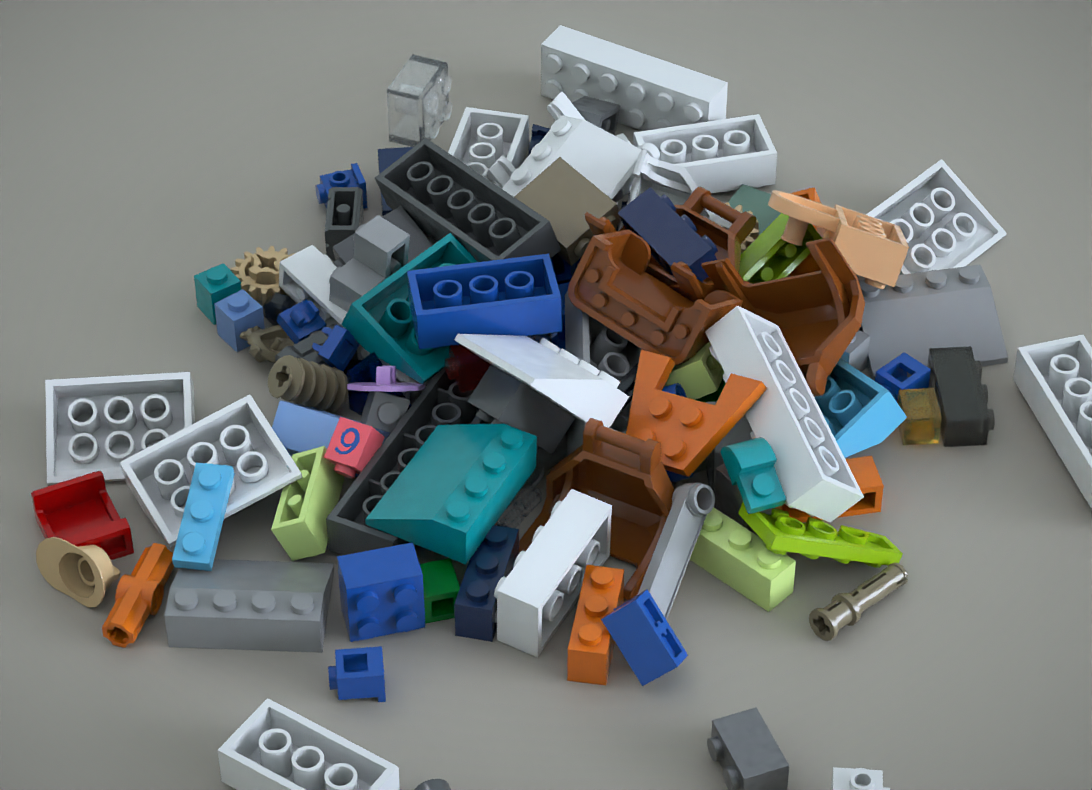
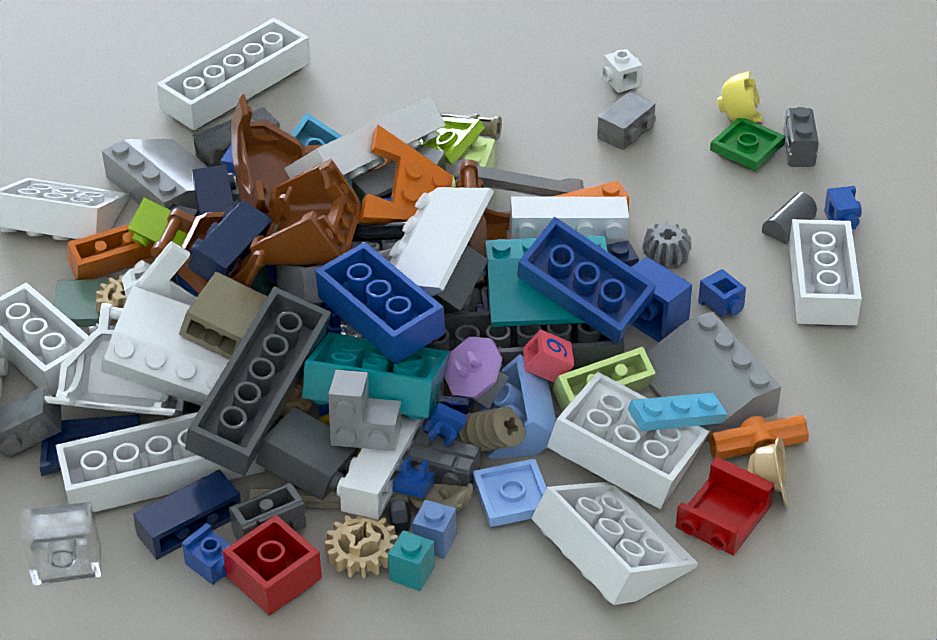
camera: 120 degrees left, 0 degrees up
(232, 382) = (509, 491): none -> light blue plate
(288, 209) = (272, 564): none -> red brick
(398, 472) = (586, 280): none -> blue brick
(481, 672) = (667, 244): none -> light grey gear
(645, 637) = (586, 169): blue hinge -> none
(753, 471) = (433, 137): teal brick -> none
(867, 243) = (153, 169): light nougat brick -> none

